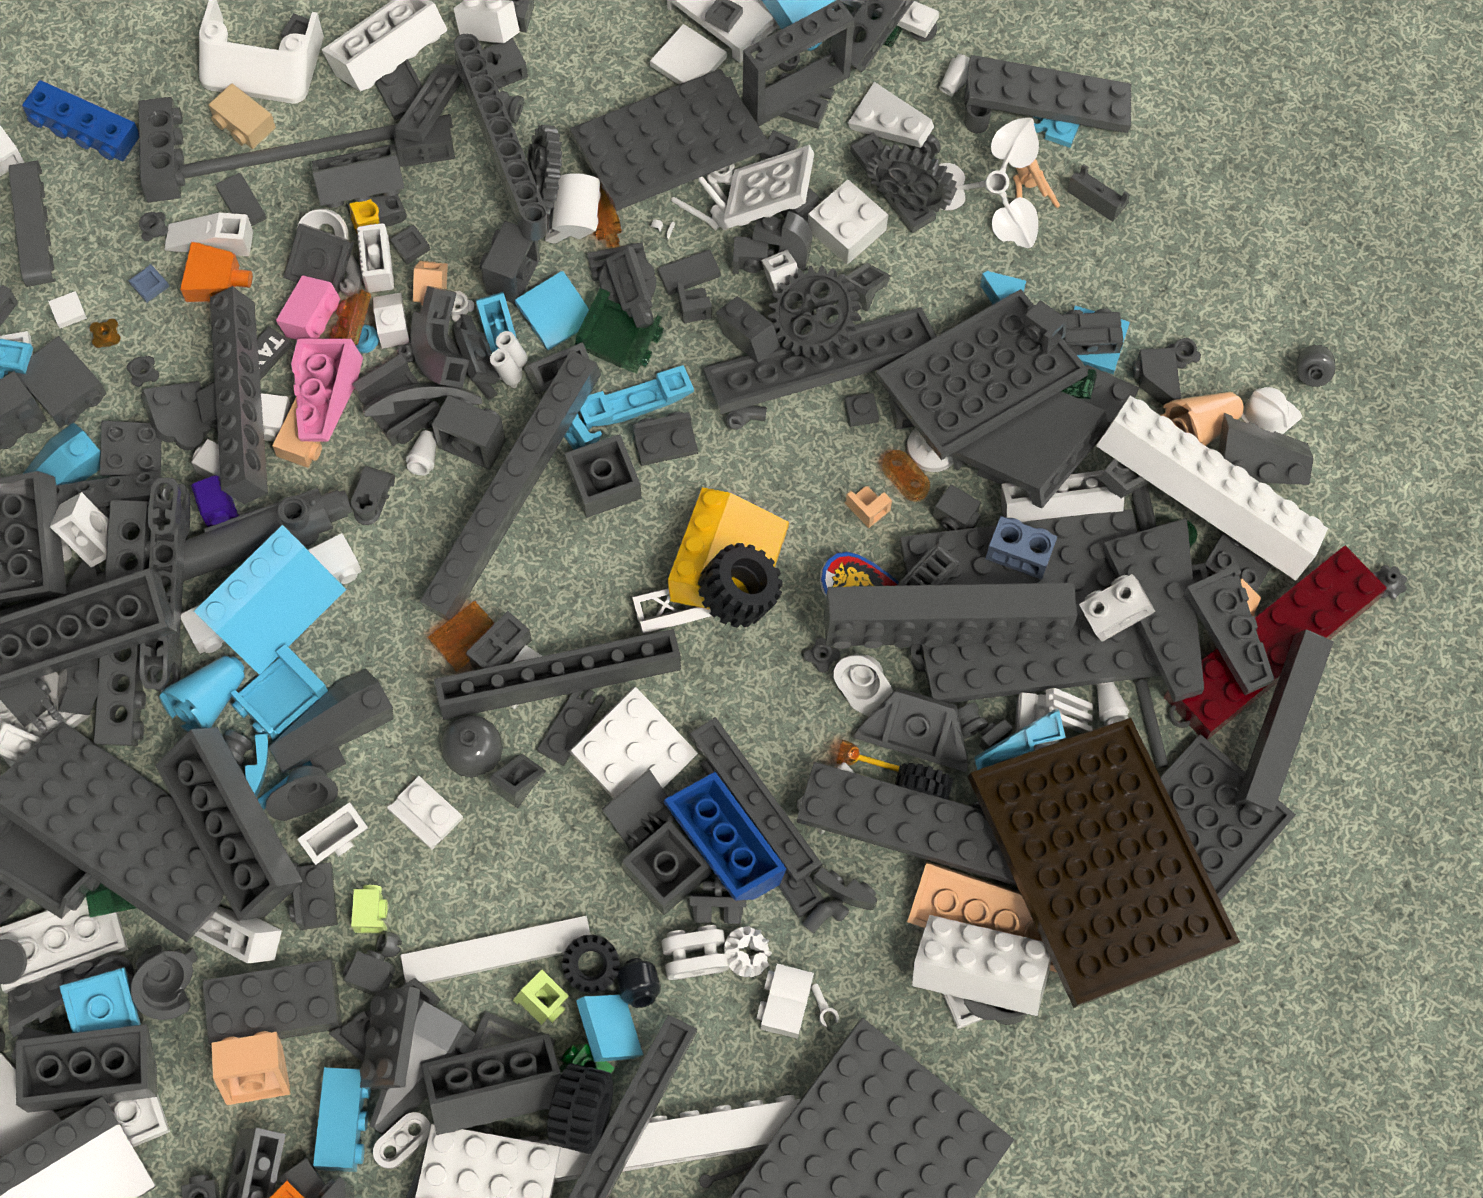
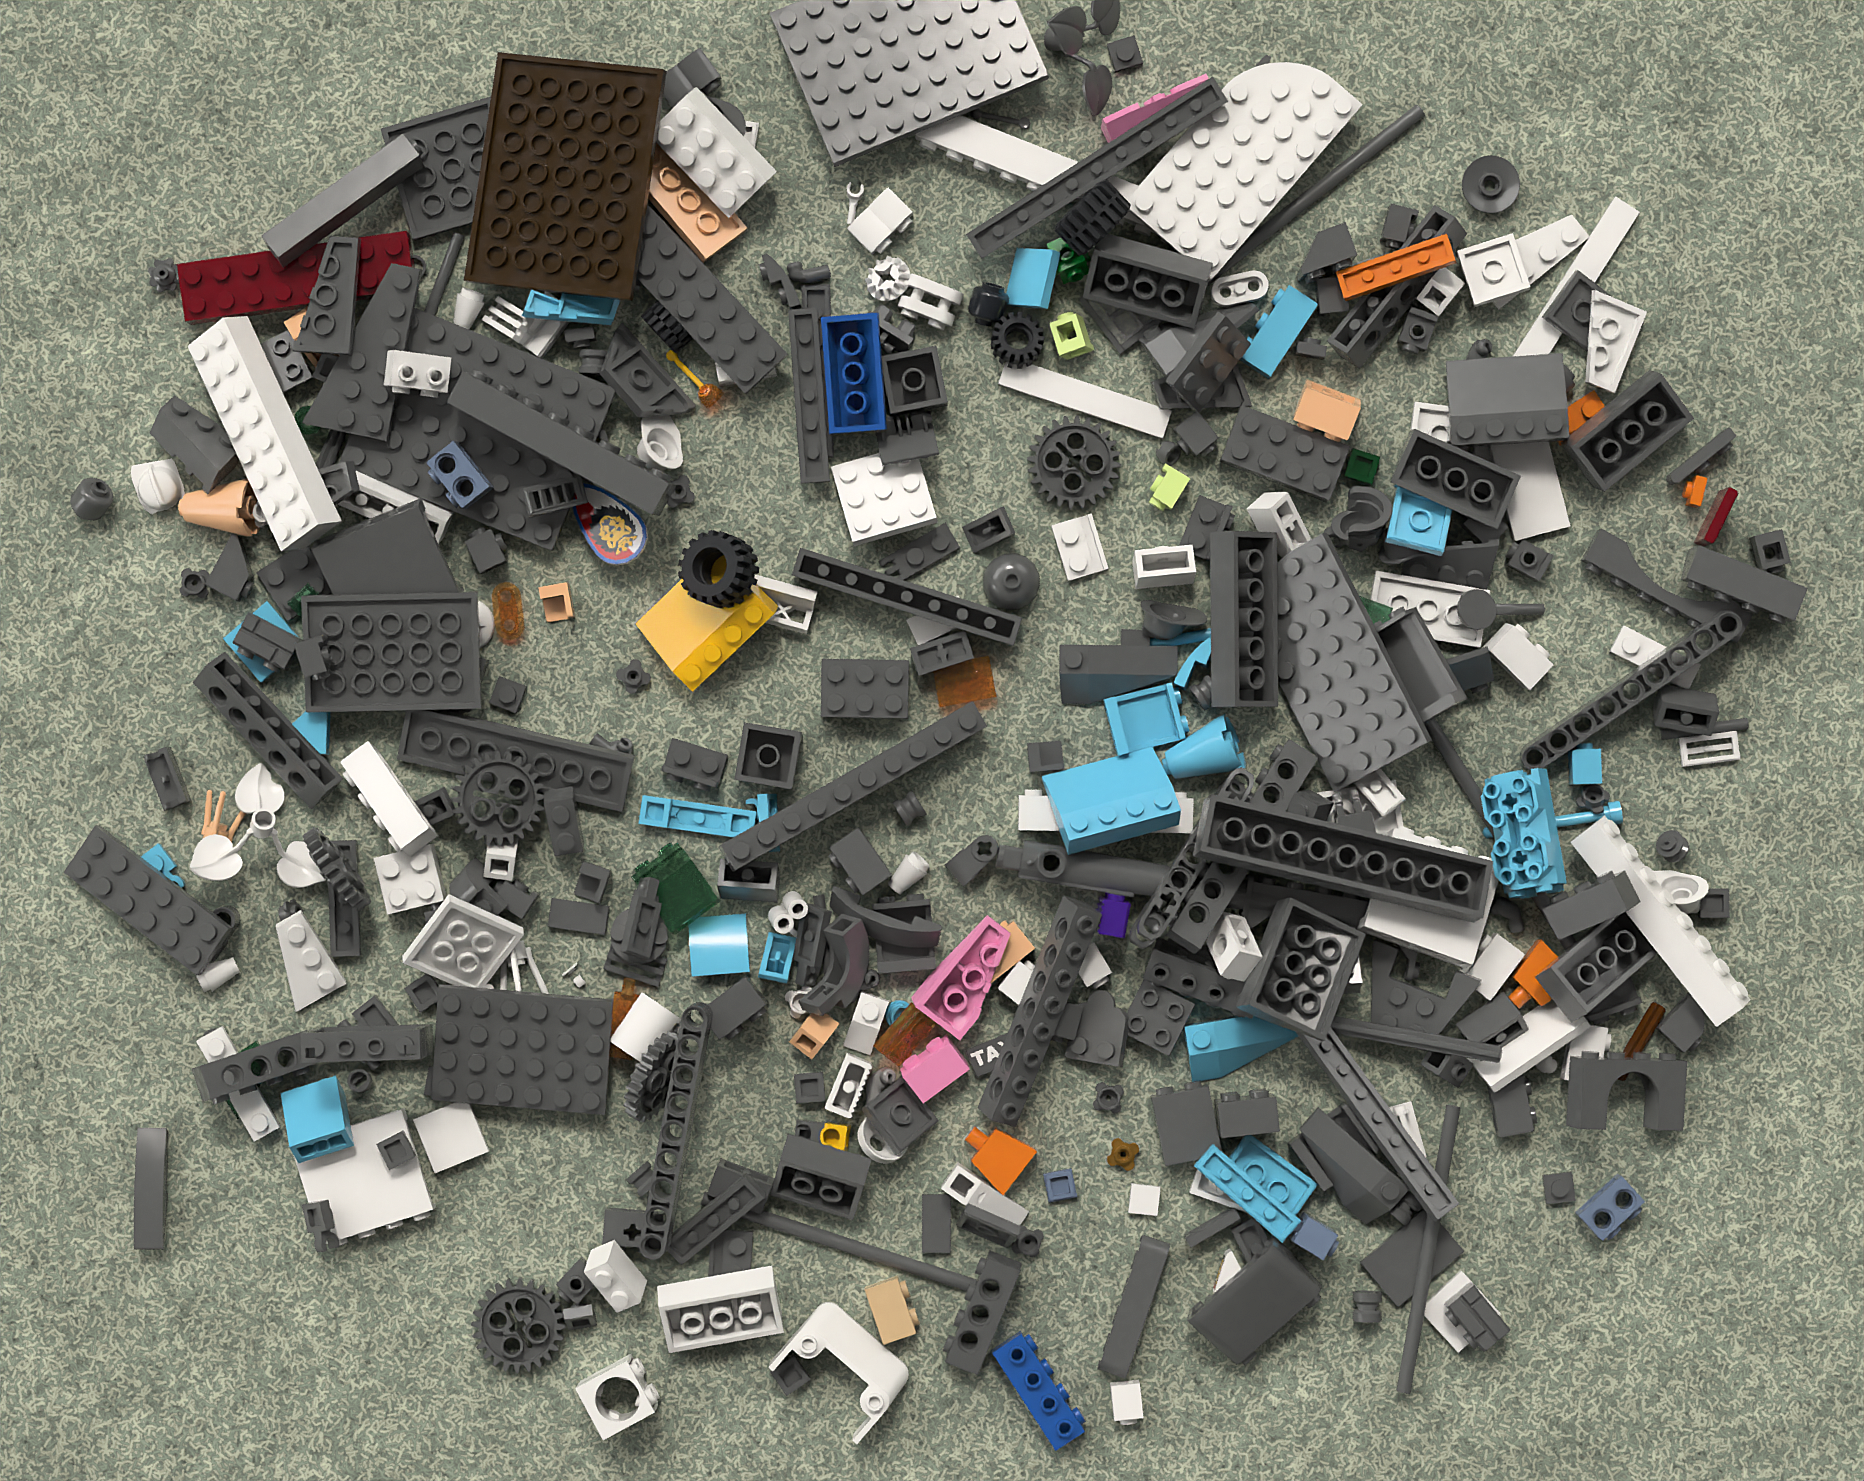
camera: 150 degrees left, 20 degrees up
(188, 210) = (988, 1225): none -> dark grey tile
(190, 1038) = (1361, 466): none -> dark green plate
(299, 1121) = (1310, 349): none -> dark grey plate
(354, 612) = (1045, 756): none -> dark grey panel
(452, 504) = (909, 808): none -> dark grey wheel
(462, 909) = (1094, 445): none -> dark grey gear
(551, 578) = (864, 688): none -> dark grey brick
(765, 489) = (633, 668): none -> dark grey plate
(906, 265) = (388, 798): none -> white brick
(1043, 268) = (267, 730): none -> dark grey brick
(1050, 1029) = (690, 73): none -> dark grey brick

